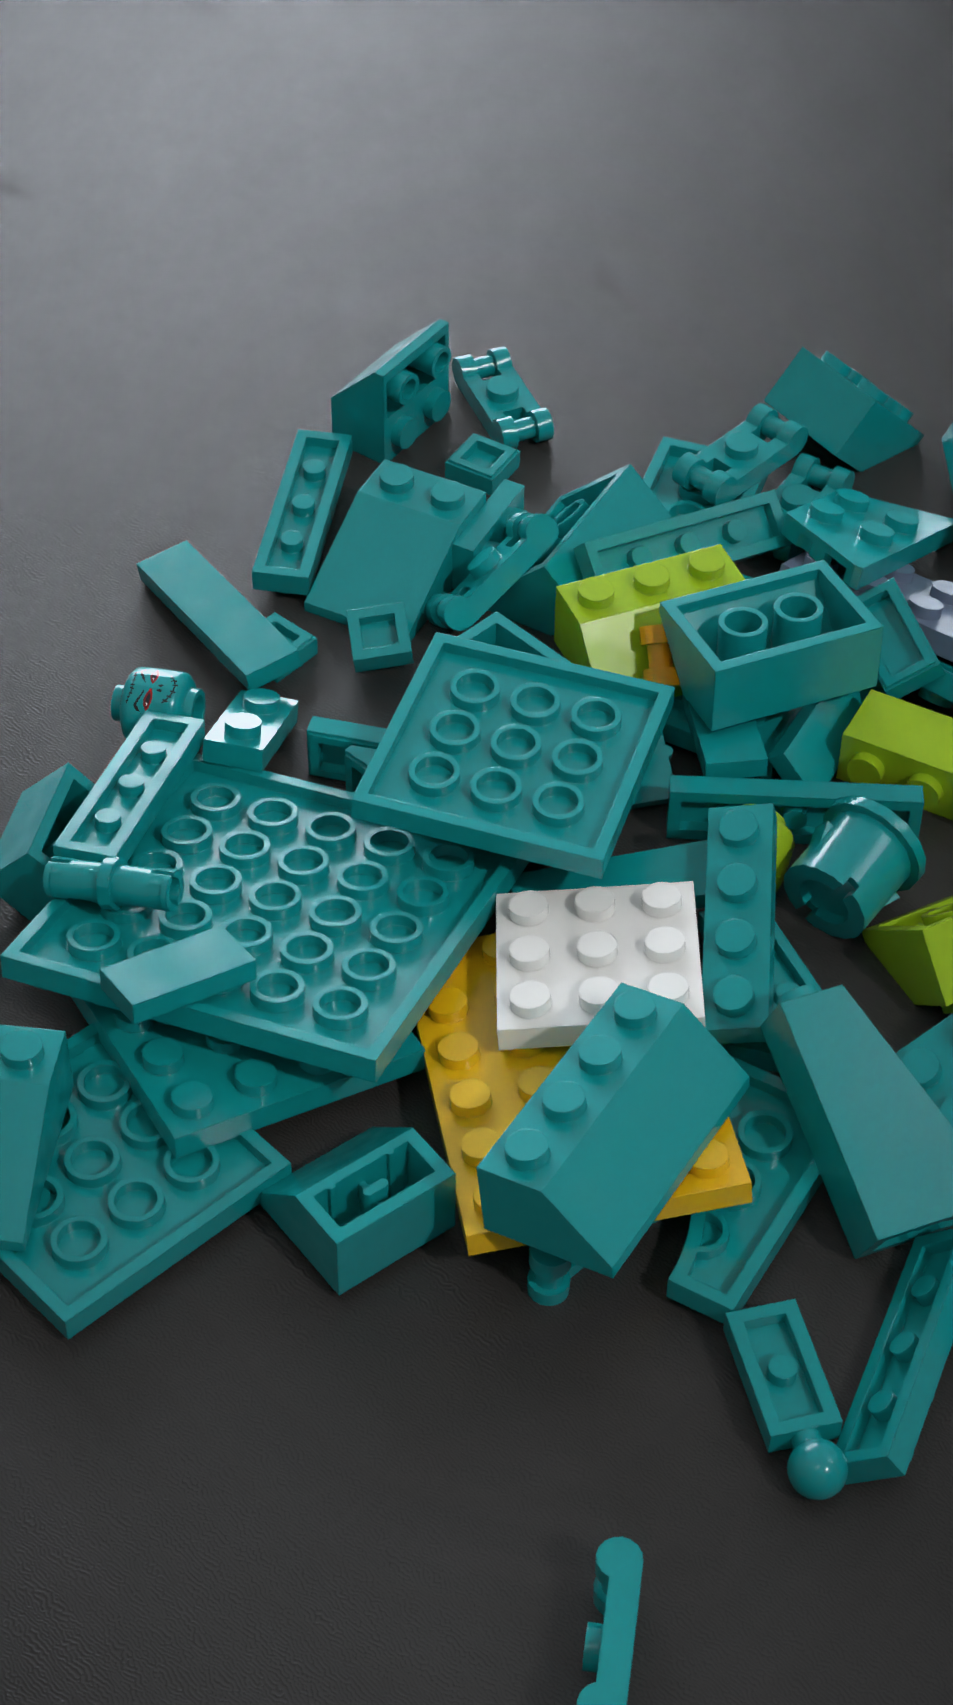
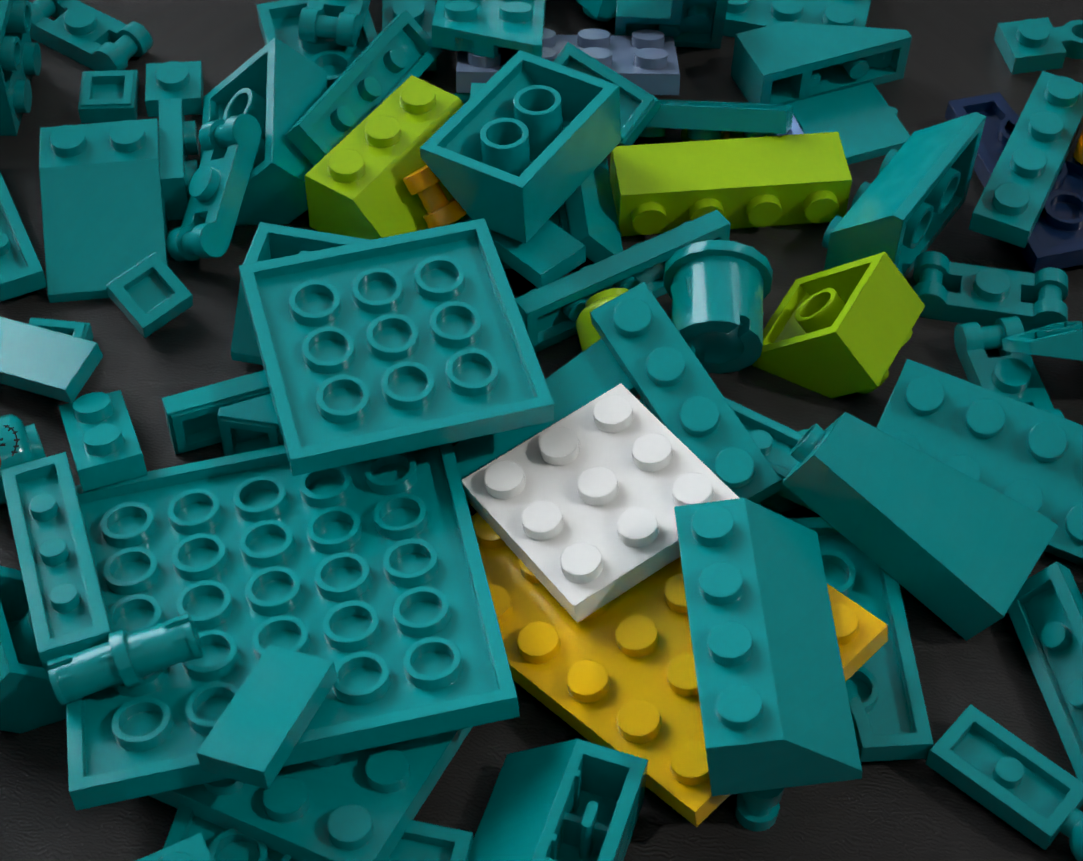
camera: 35 degrees left, 5 degrees up
(544, 478) = (173, 81): none -> teal plate

